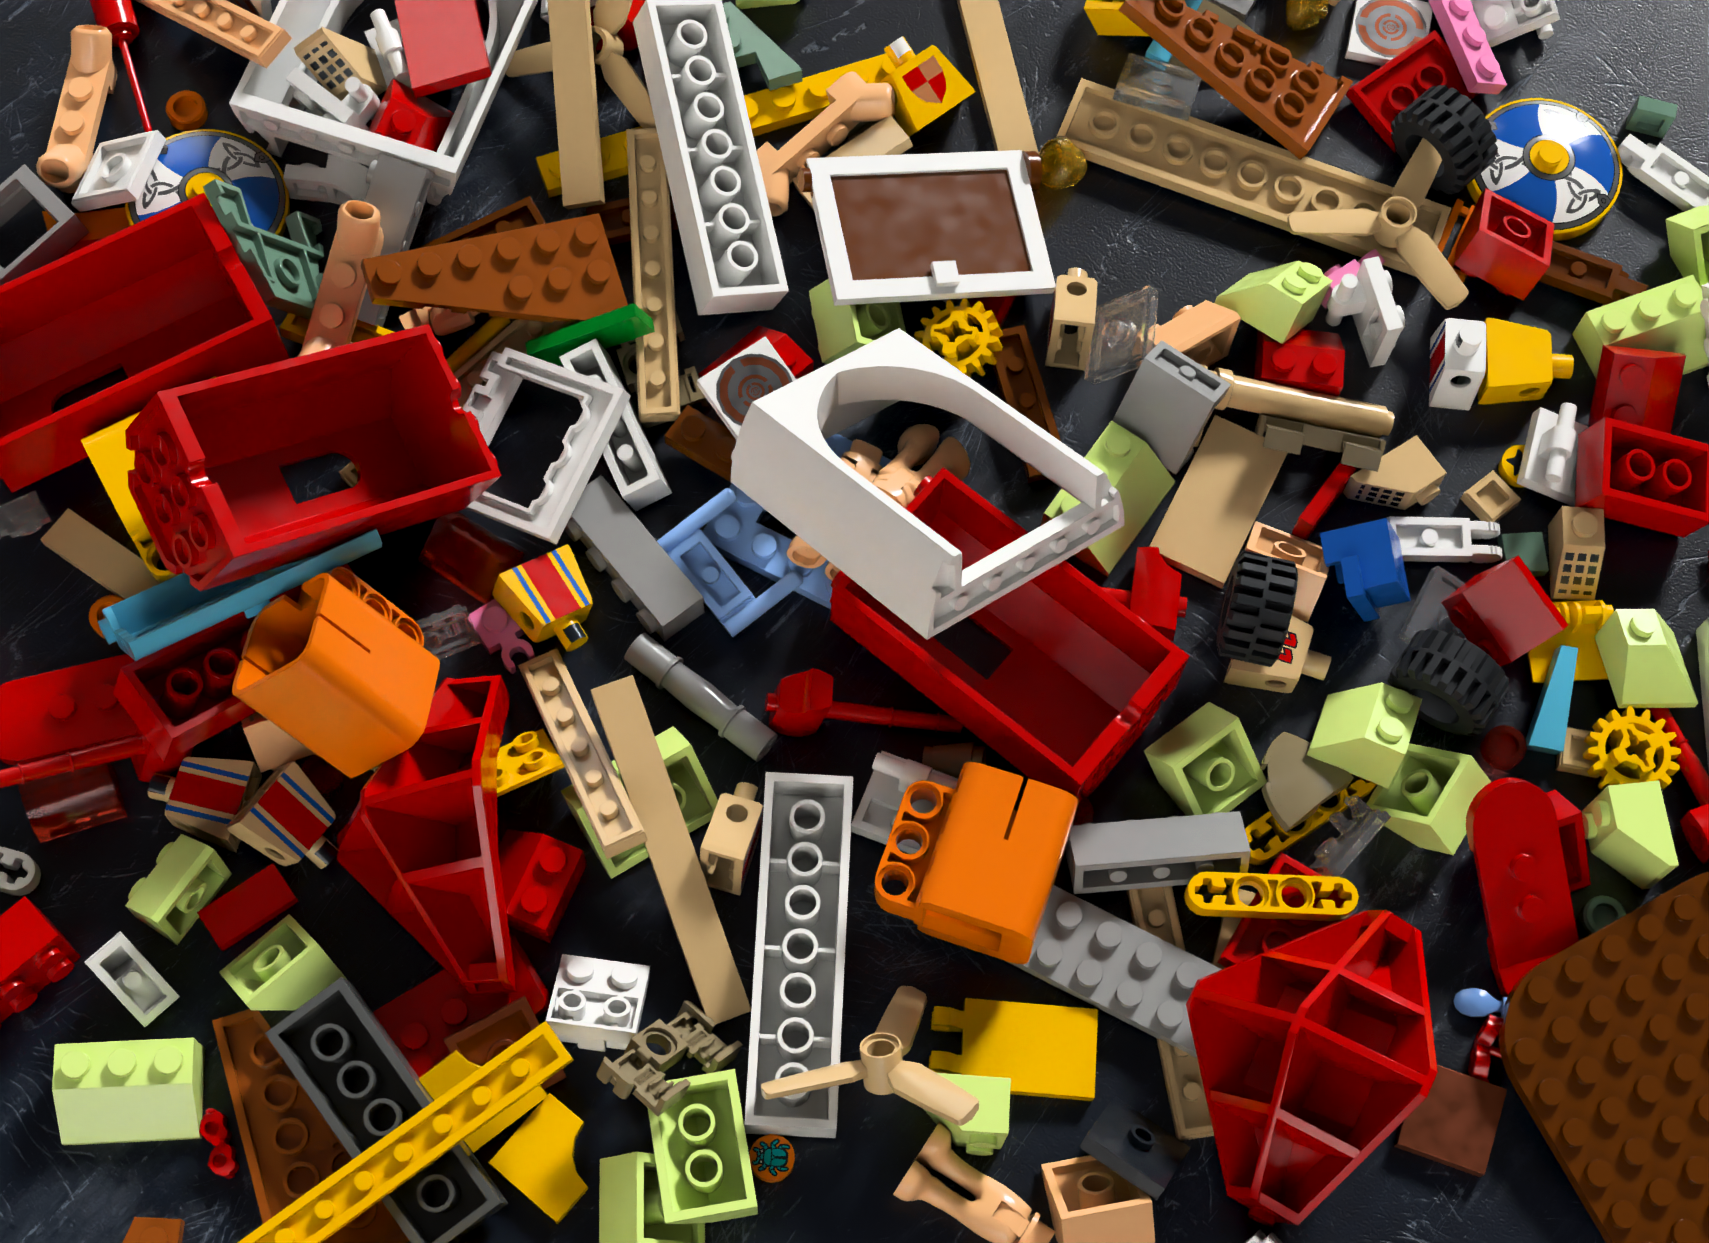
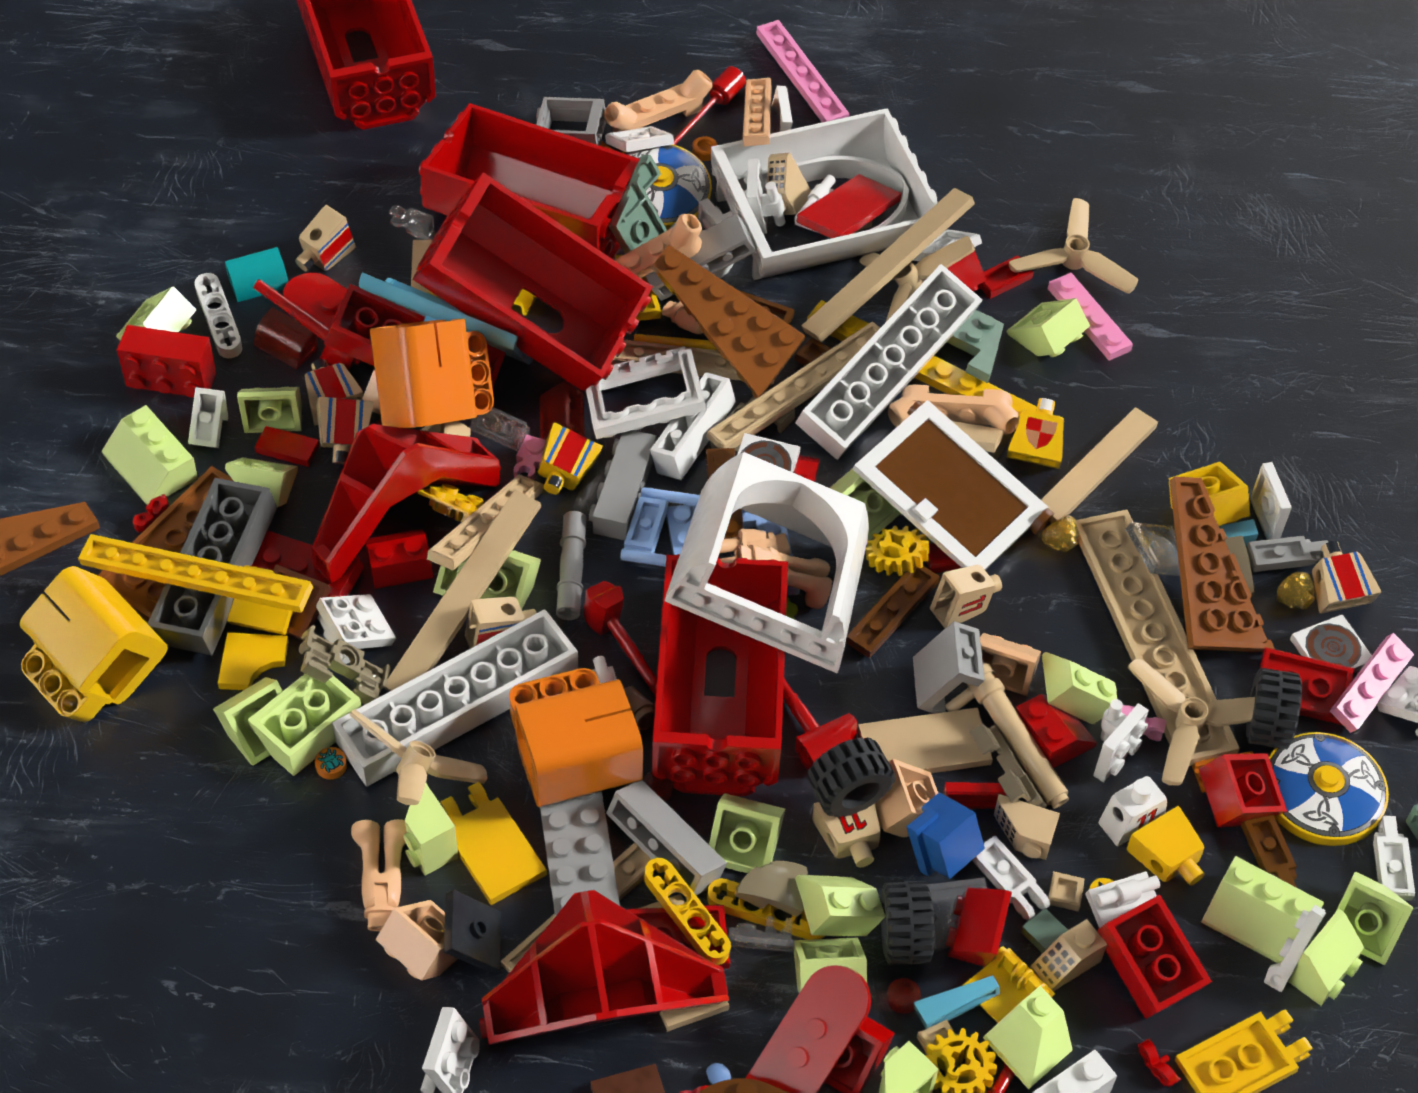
camera: 55 degrees right, 15 degrees down
(410, 118) = (781, 227): red slope -> none
(608, 328) = (743, 383): green tile -> none
(1122, 334) = (988, 619): clear plate -> none
(1141, 484) = (872, 684): yellowish green slope -> none
(1637, 387) = (1213, 921): red slope -> none

